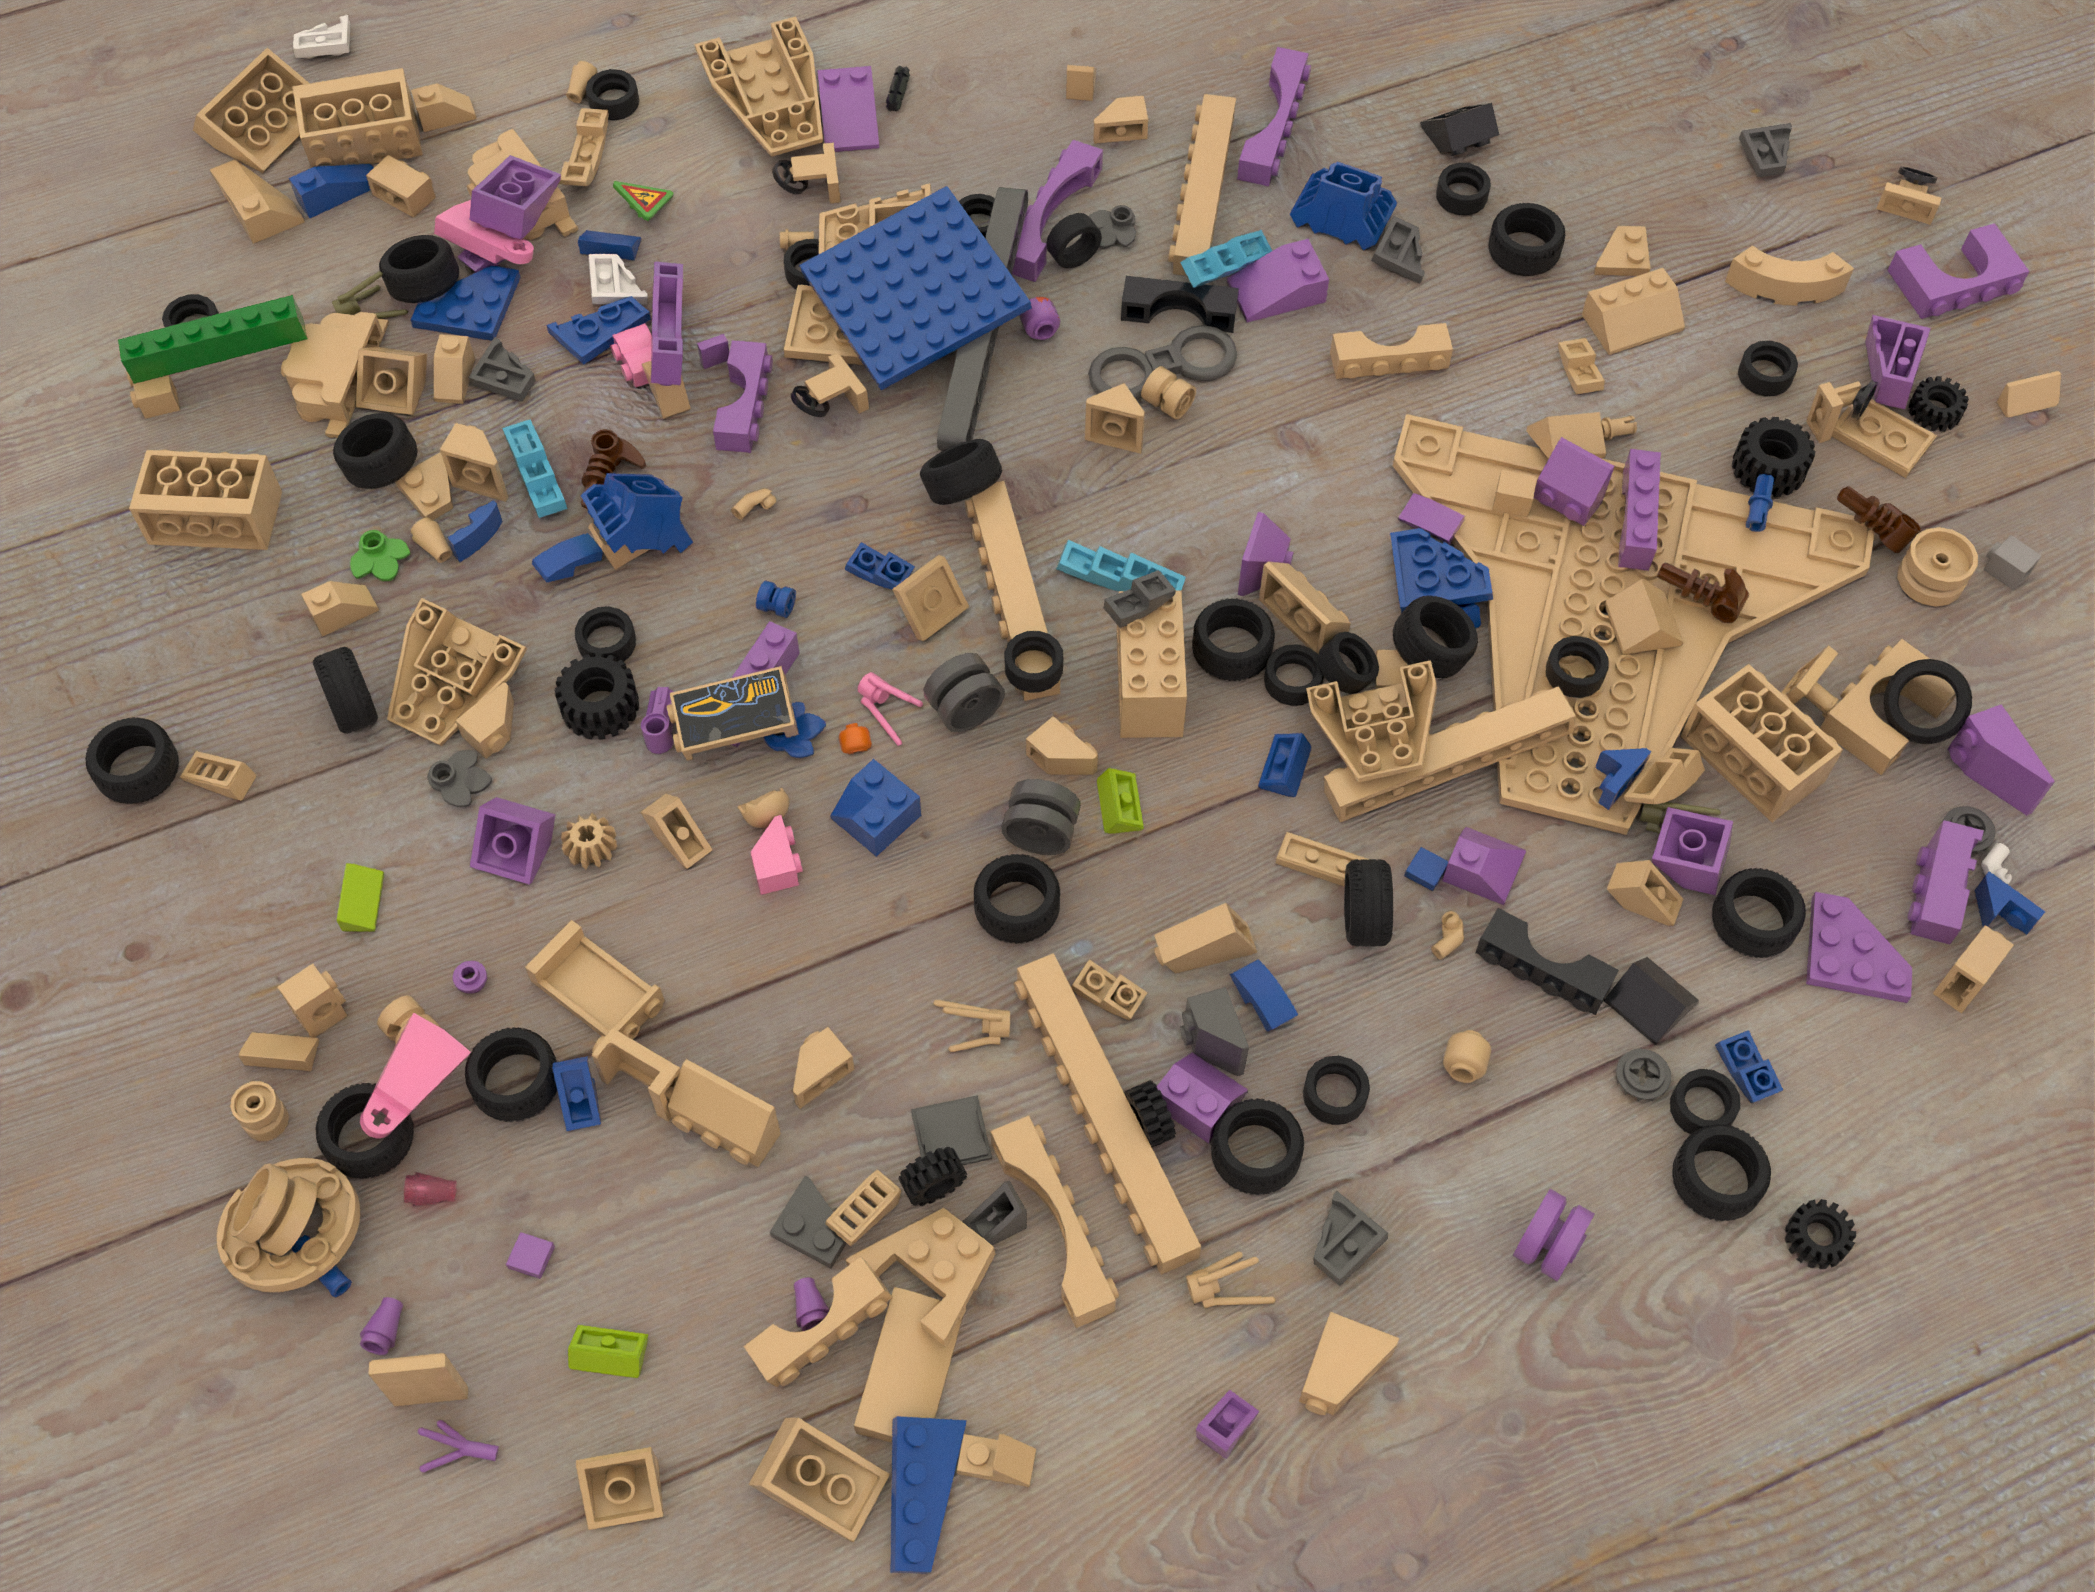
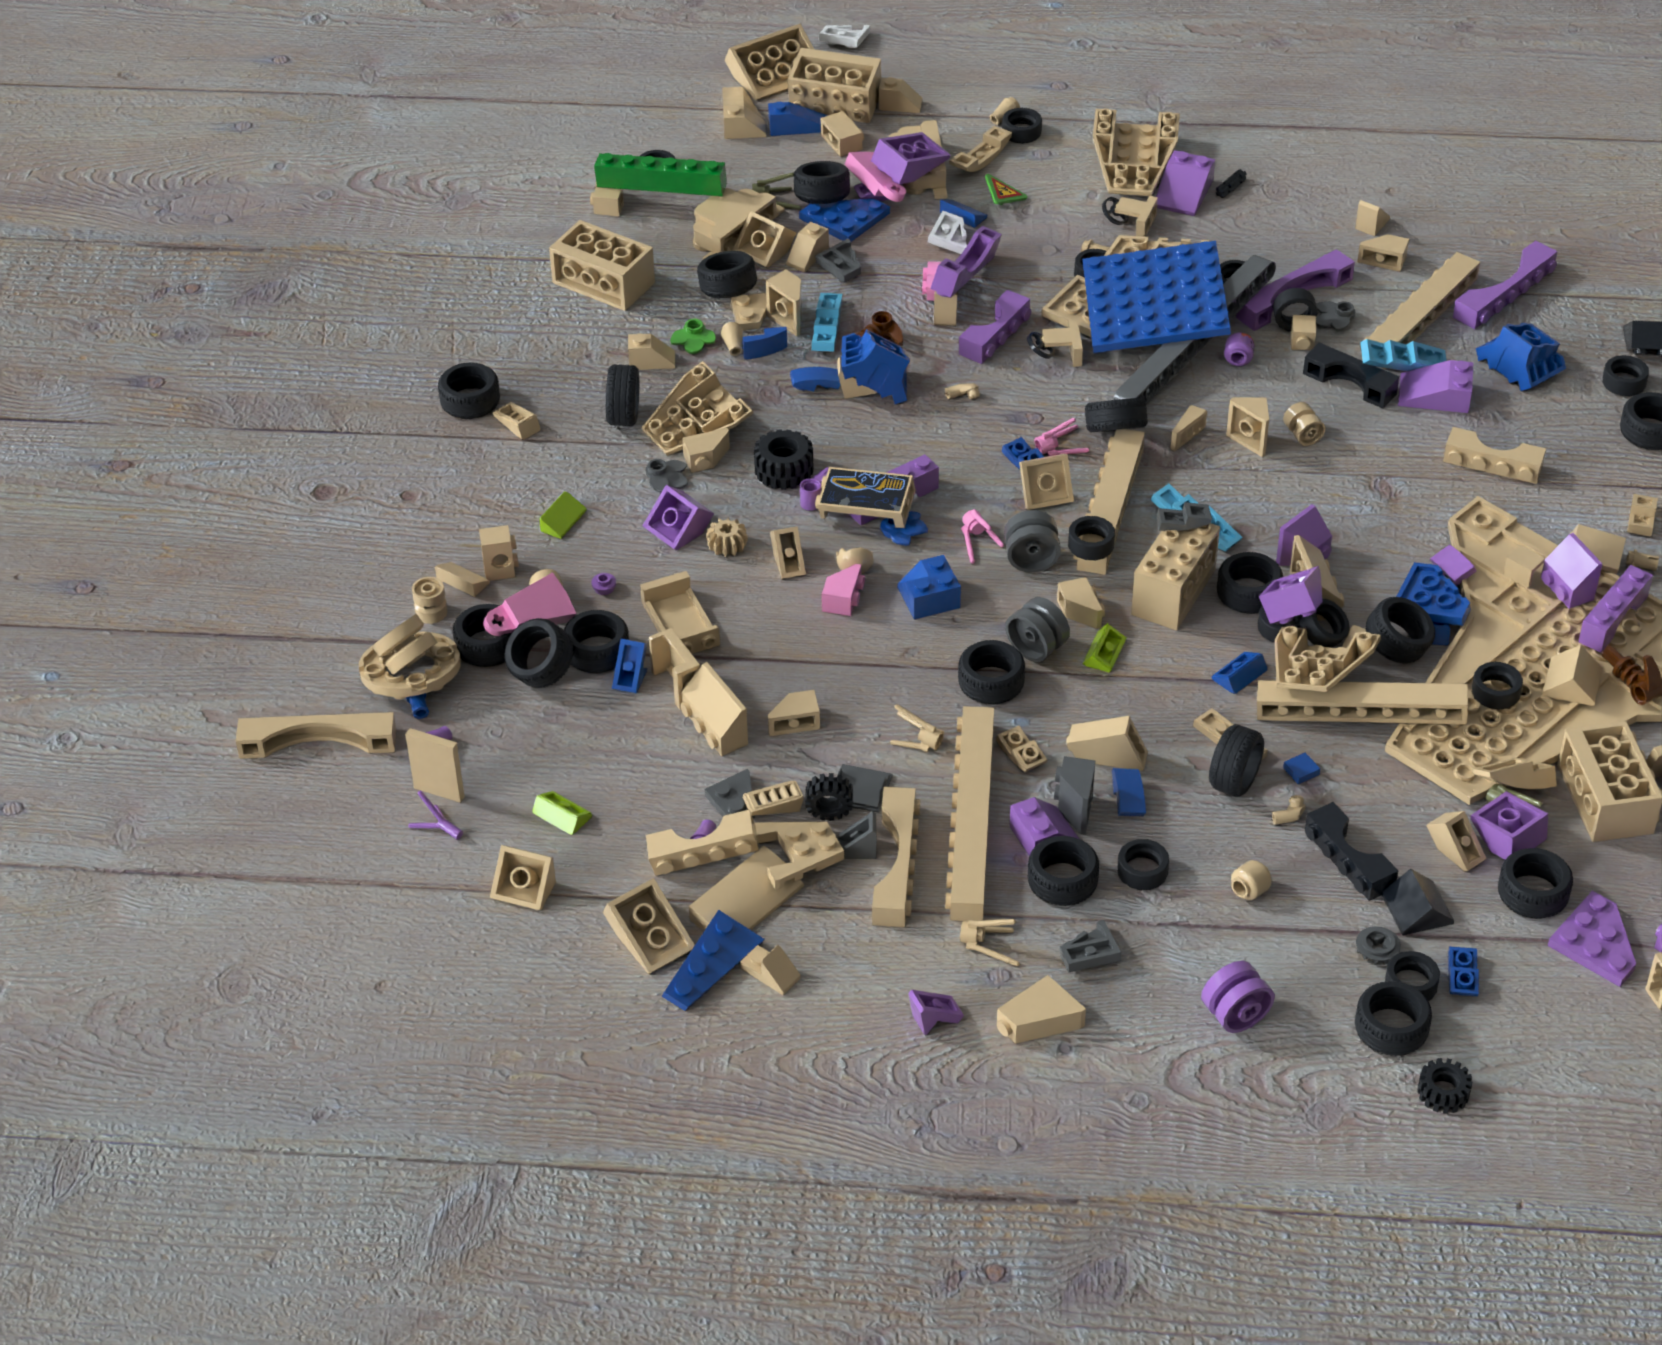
camera: 30 degrees right, 15 degrees down
(148, 1432) = (269, 734): none -> tan arch
(423, 1143) = (552, 667): none -> black tyre
(428, 1189) = (503, 681): clear pink cone -> none
(530, 1255) = (546, 743): medium lavender tile -> none
(592, 334) = (913, 259): blue wing -> none
(602, 617) = (817, 419): black tyre -> none
(713, 351) = (991, 293): medium lavender tile -> none
(775, 599) = (942, 450): blue wheel -> none
(855, 739) = (943, 546): orange piece -> none
(896, 536) = (1048, 441): none -> bright pink plant
(1043, 443) = (1189, 426): none -> tan slope
(1095, 266) = (1303, 332): none -> tan brick
(1151, 1112) = (998, 821): black tyre -> none
(1168, 357) = (1324, 407): dark grey bar -> none
(1307, 647) = (1293, 596): none -> medium lavender slope
(1401, 250) = (1547, 397): dark grey wing -> none
(1483, 865) = (1343, 780): medium lavender slope -> none
(1621, 770) = (1483, 753): blue slope -> none

